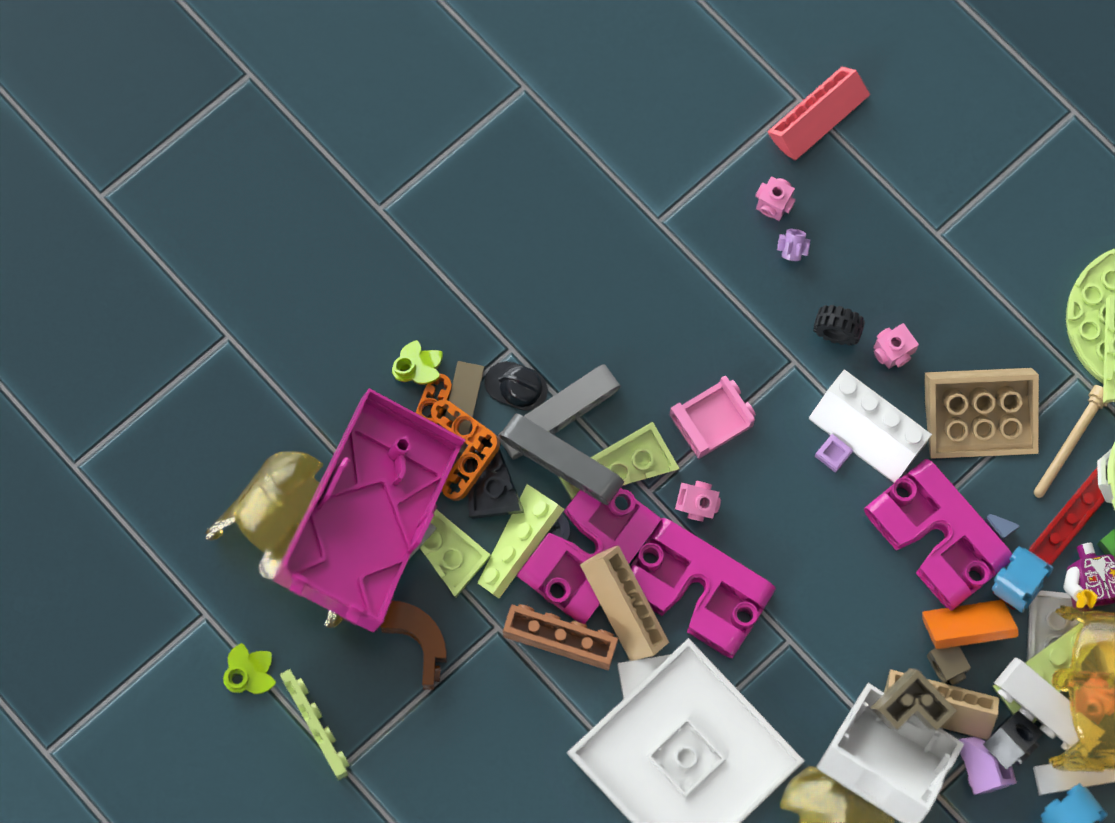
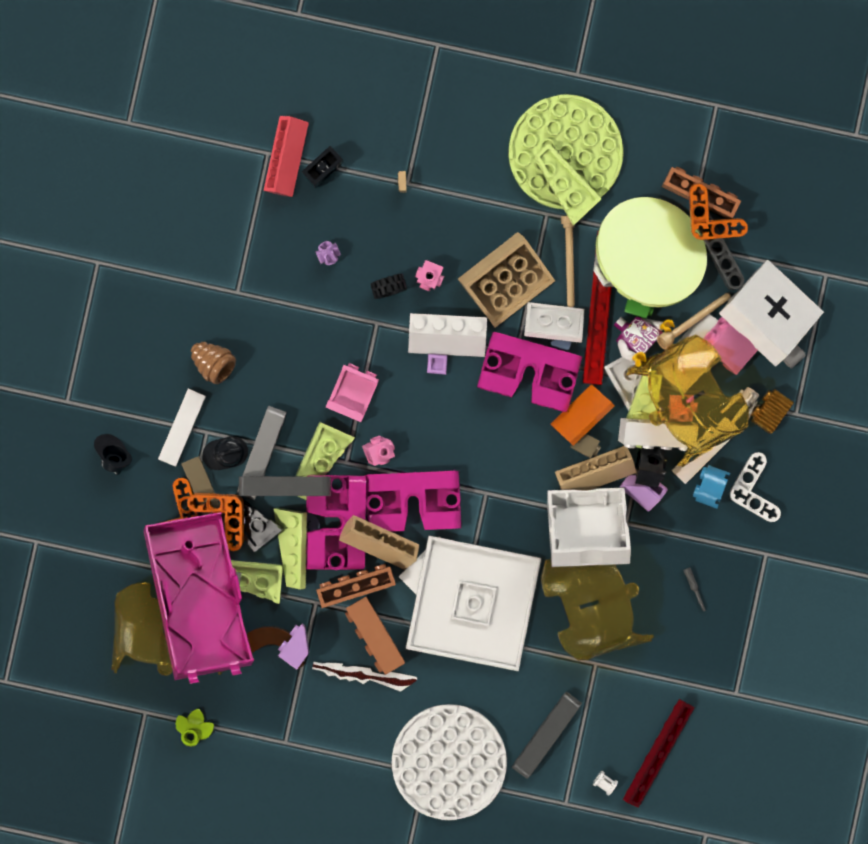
camera: 35 degrees left, 15 degrees up
(311, 715) = (280, 743): yellowish green wing -> none
(388, 296) = (112, 453): none -> black piece
(421, 364) = (161, 480): lime plate -> none
(439, 655) = (297, 648): none -> lavender slope
(487, 323) = (182, 427): none -> white tile
(493, 750) = (362, 674): none -> white sword
(542, 711) = (375, 635): none -> nougat brick
(577, 273) = (213, 361): none -> medium nougat piece
(775, 198) = (302, 237): bright pink brick -> none
(854, 148) = (322, 166): none -> black brick
(911, 696) = (577, 486): dark tan brick -> none
(933, 225) = (402, 181): none -> tan tile
(1007, 496) = (554, 322): none -> white tile
(1022, 579) = (595, 369): dark azure brick -> none

